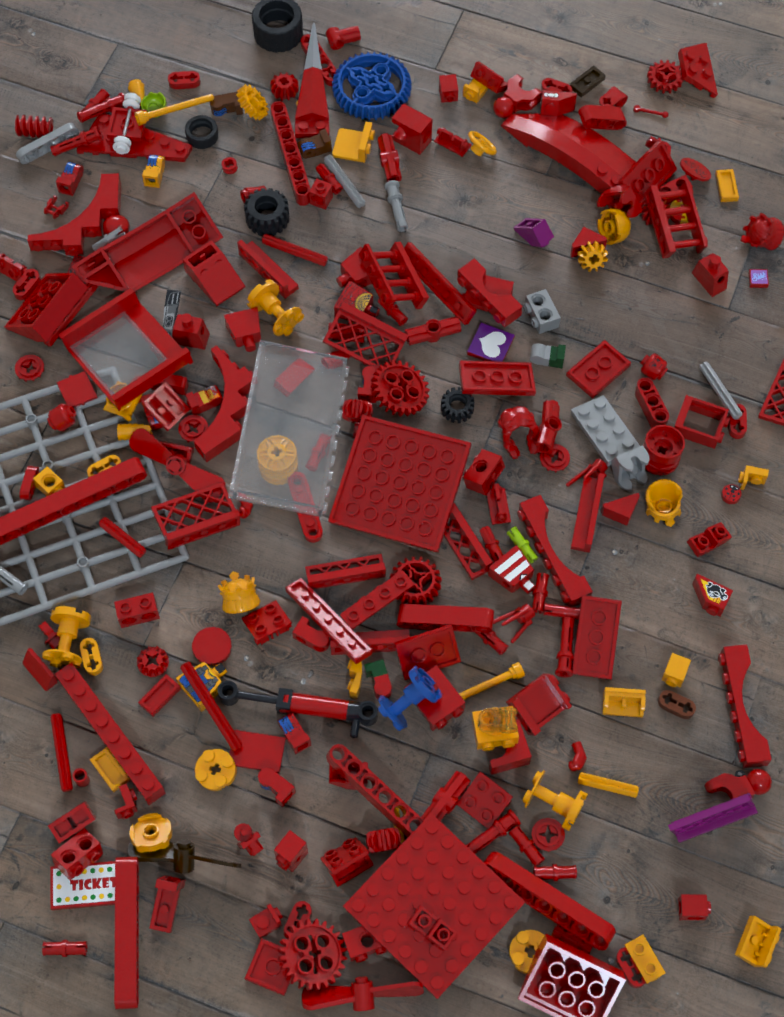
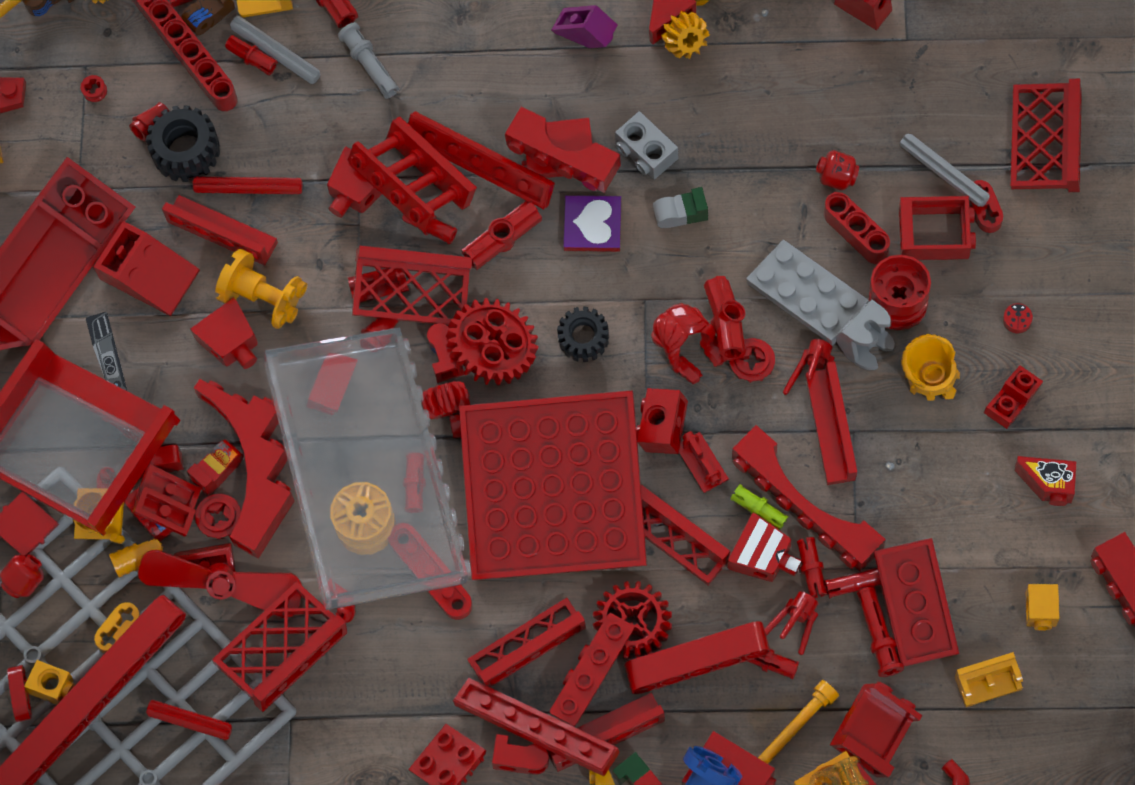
camera: 15 degrees left, 5 degrees up
(190, 331) = (151, 372): red torso -> none
(201, 121) = (22, 34): black tyre -> none
(238, 594) = (392, 737): light orange hair -> none
(321, 194) = (250, 84): red brick -> none
(358, 298) = (373, 229): red torso -> none
(428, 650) = (692, 715): red tile -> none
(491, 543) = (716, 522): red axle -> none
(497, 378) = (623, 272): red tile -> none
(598, 369) = (760, 202): red tile -> none
(621, 509) = (876, 401): red slope -> none
(674, 708) = (1060, 660): copper beam -> none
(754, 475) = (1037, 278): light orange bracket -> none

